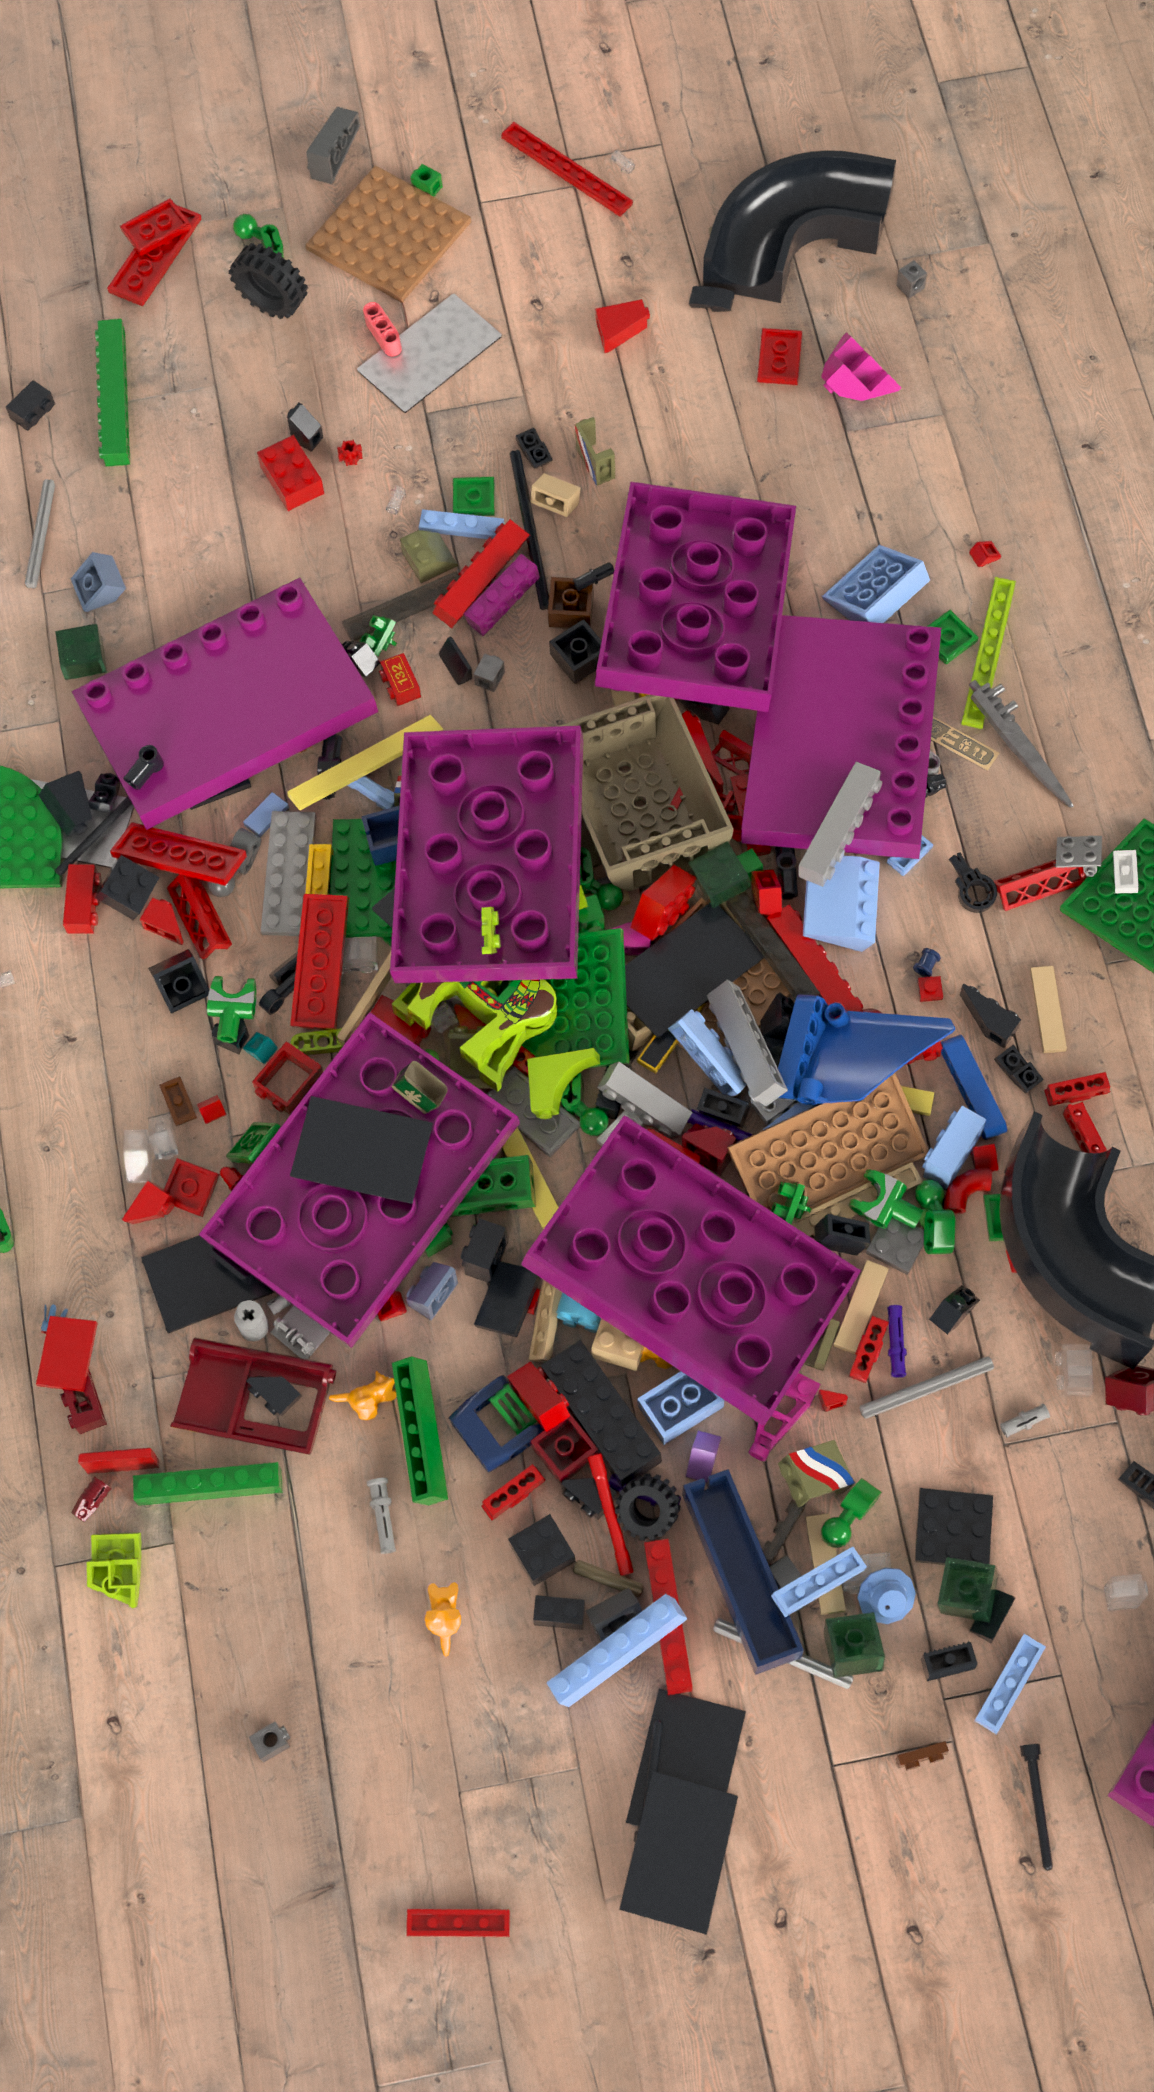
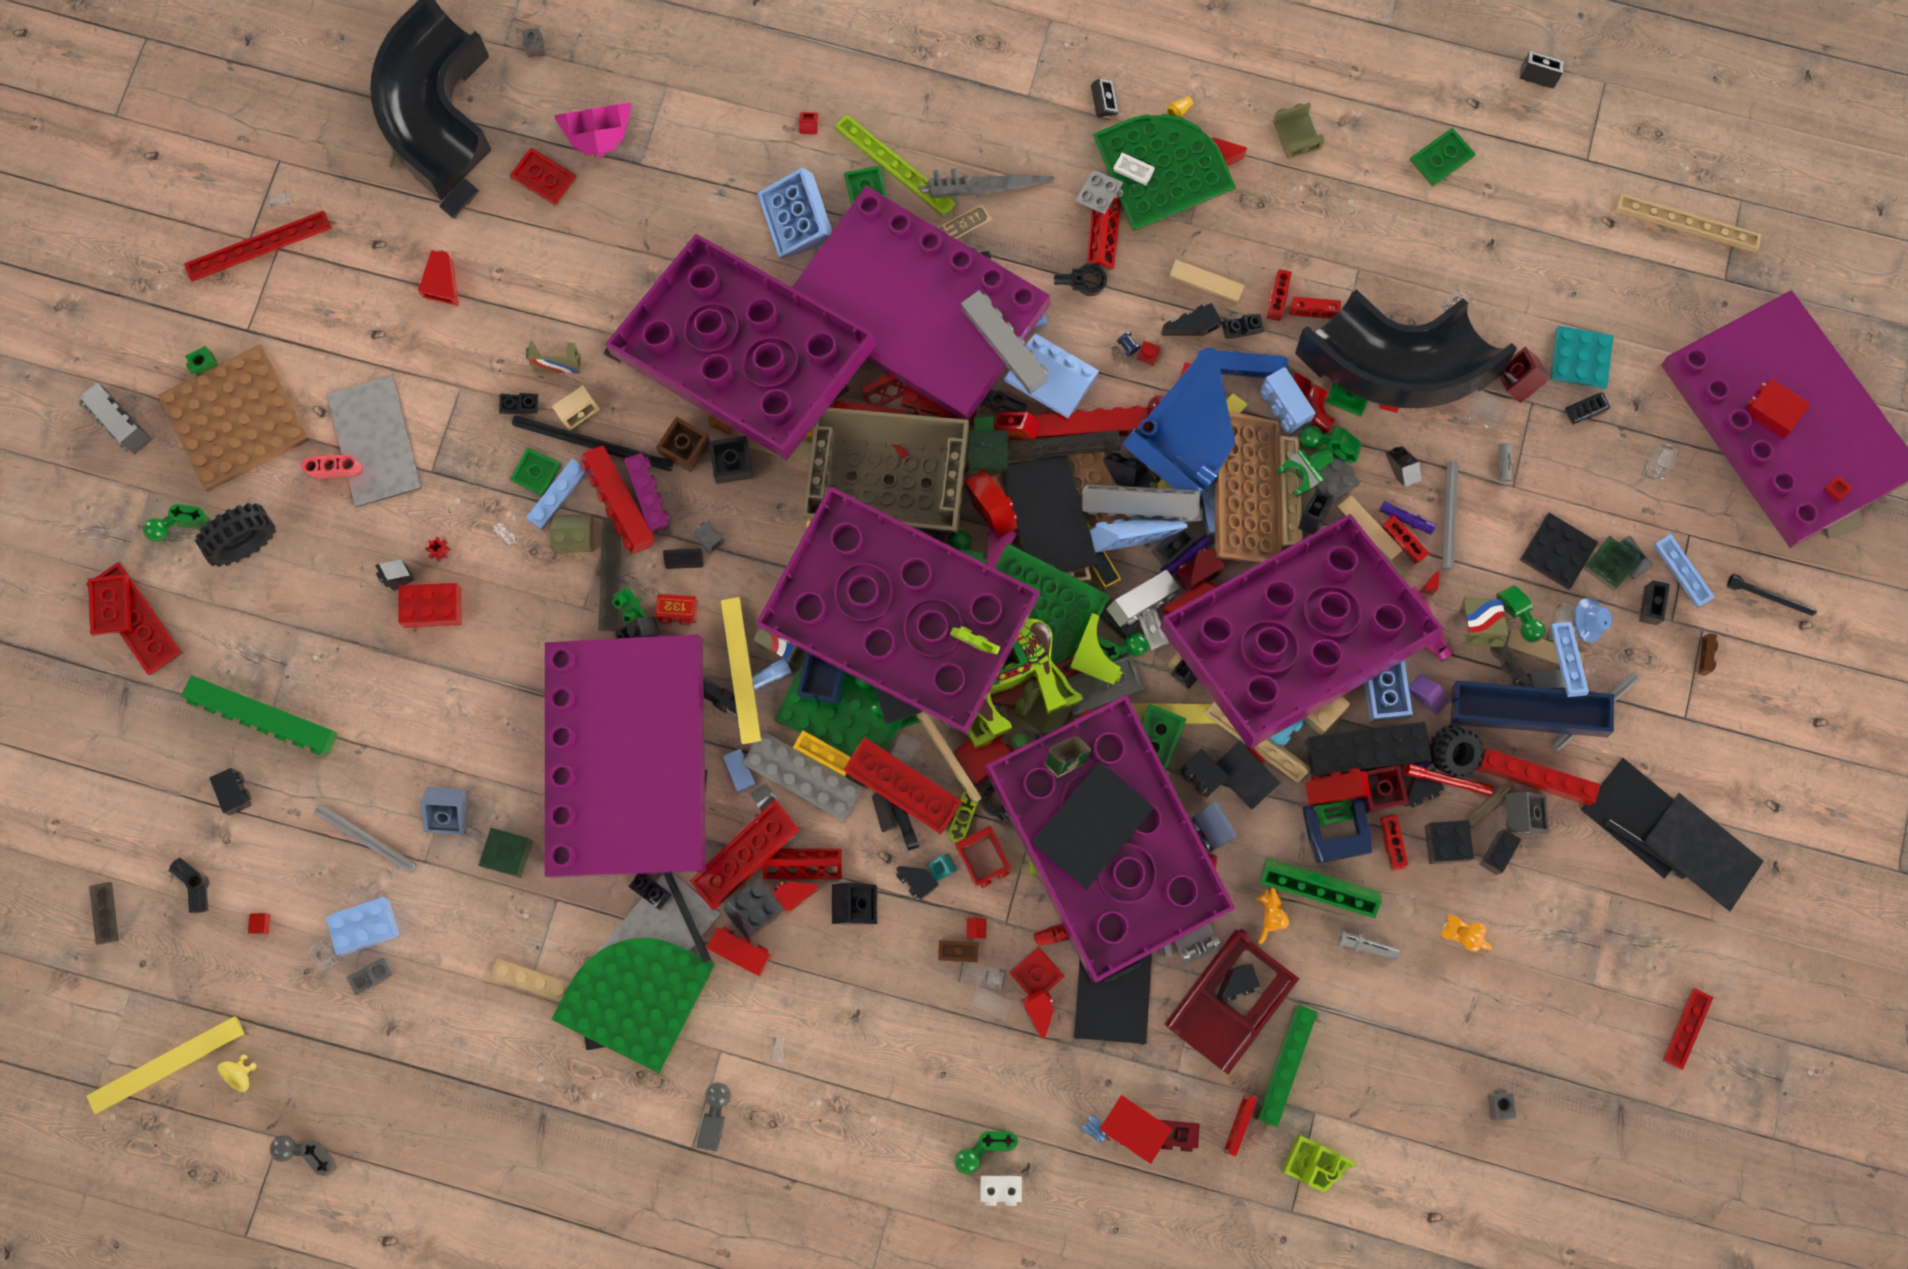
camera: 70 degrees left, 10 degrees up
(68, 803) = (648, 923): black slope -> none
(90, 1499) = (1254, 1160): dark red hinge -> none
(148, 763) = (661, 849): black piece -> none
(231, 1007) = (908, 873): green connector -> none
(251, 1320) = (1175, 982): light grey piece -> none
(253, 1142) = (1032, 906): green tile -> none
(593, 576) = (677, 414): black axle -> none
(616, 1650) = (1553, 823): light blue brick -> none
(793, 1193) = (1277, 534): green hips -> none
(854, 1645) = (1617, 659): clear green brick -> none

